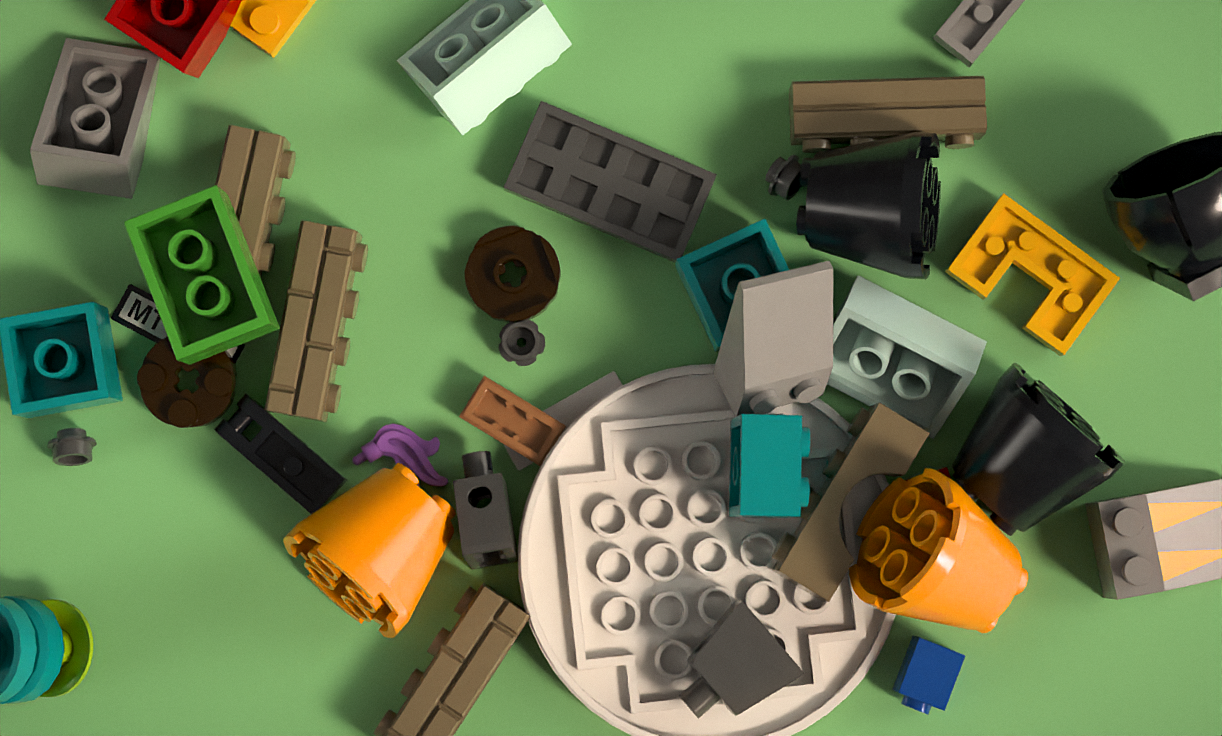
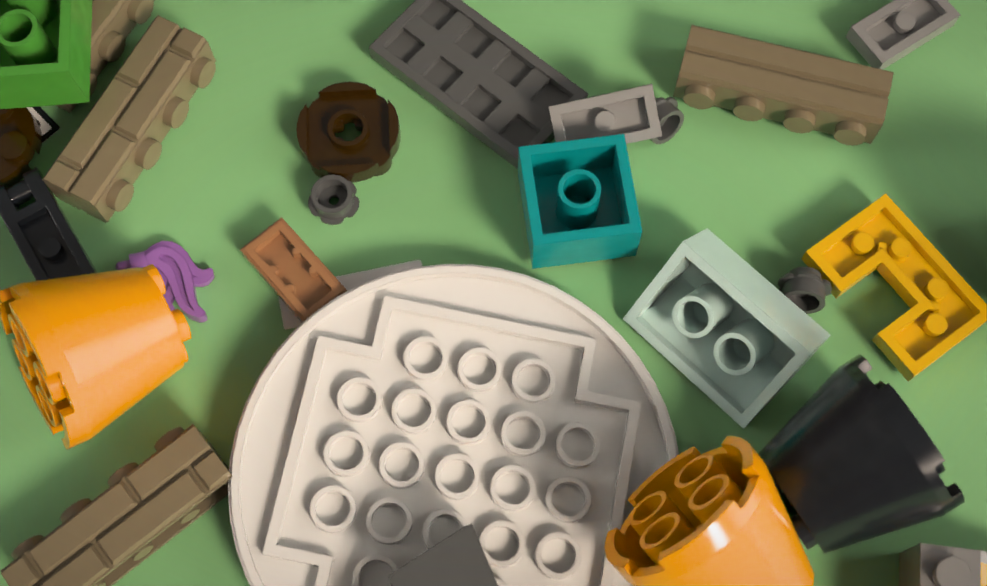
camera: 15 degrees right, 15 degrees down
(485, 532) = (222, 354): dark grey torso -> none
(742, 201) = (613, 113): none -> light grey plate
(767, 466) = (543, 388): teal brick -> none
(778, 340) = (601, 248): light grey slope -> none
(816, 553) = (576, 502): dark tan arch -> none
(875, 203) = (747, 155): black cone -> none
(954, 302) = (805, 288): none -> dark grey plate

